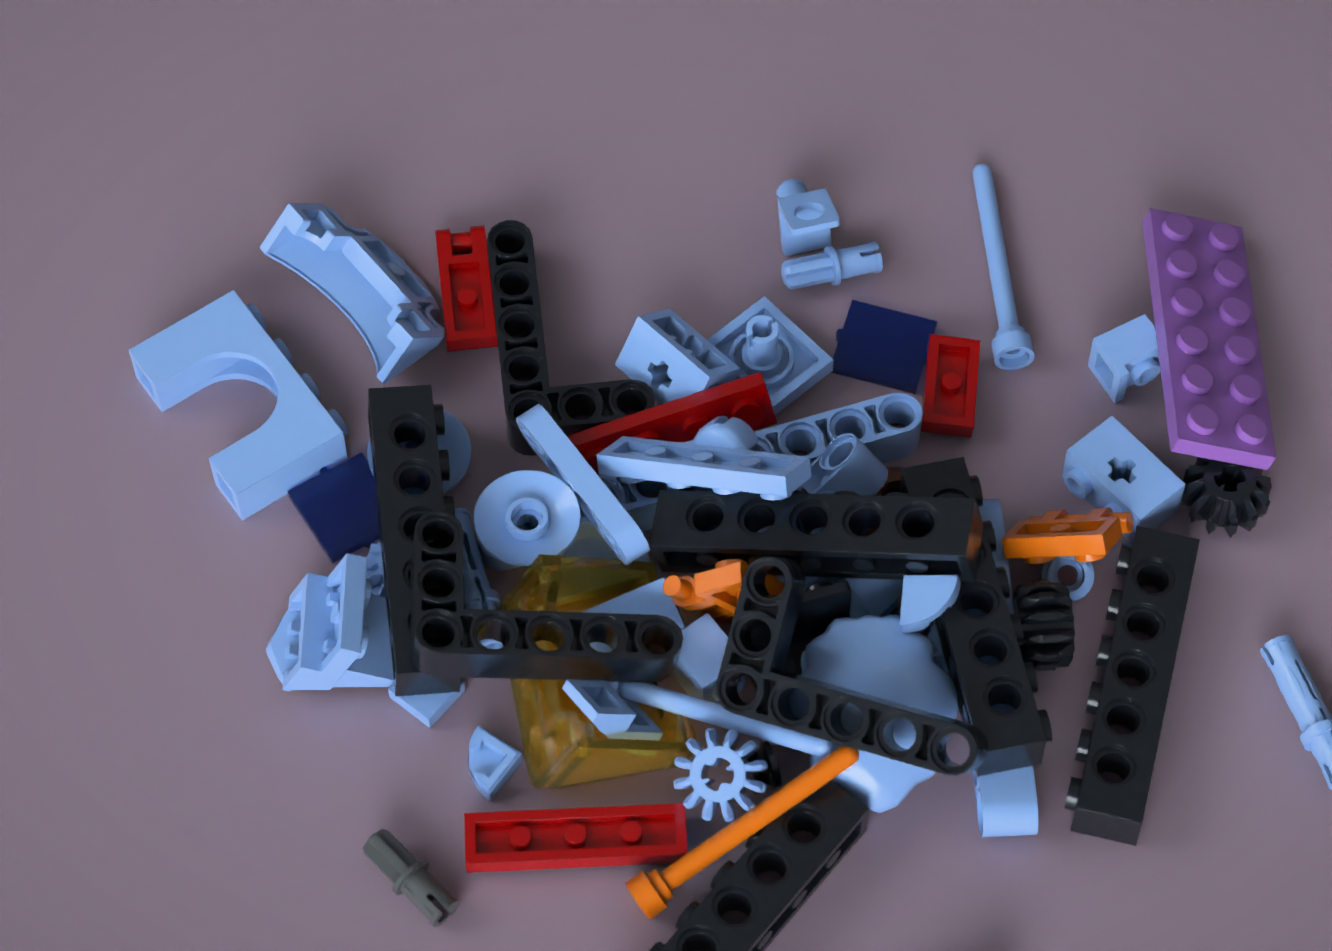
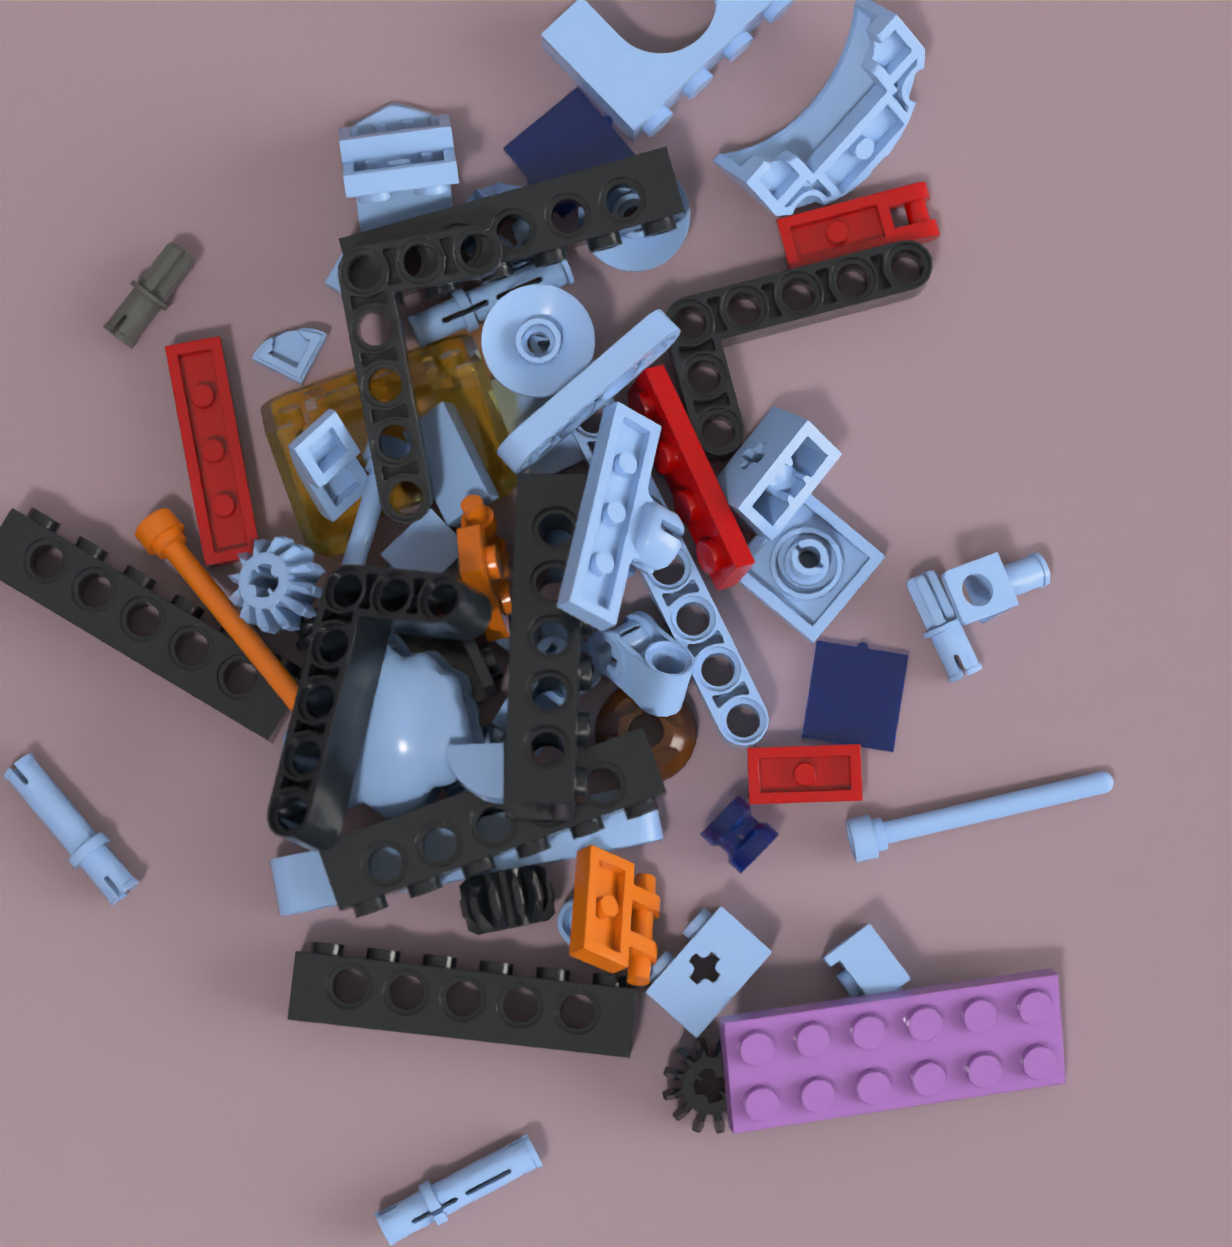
camera: 80 degrees right, 25 degrees up
(998, 441) = (732, 822): none -> clear blue wheel

